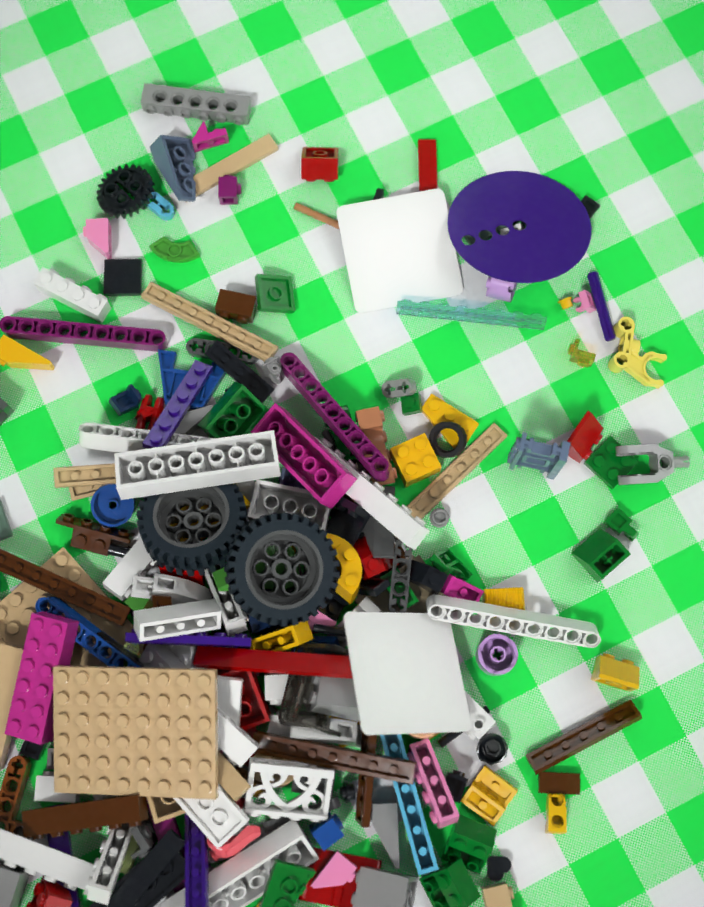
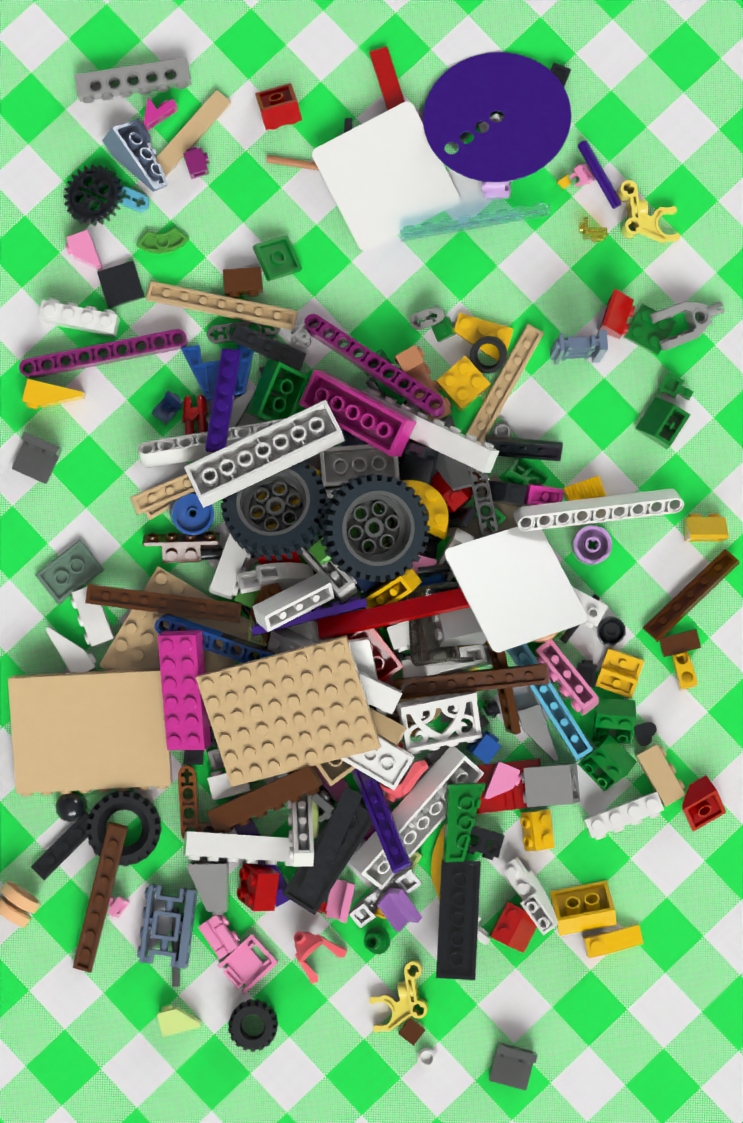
camera: 15 degrees left, 10 degrees up
(459, 540) = (526, 448): none -> black tile

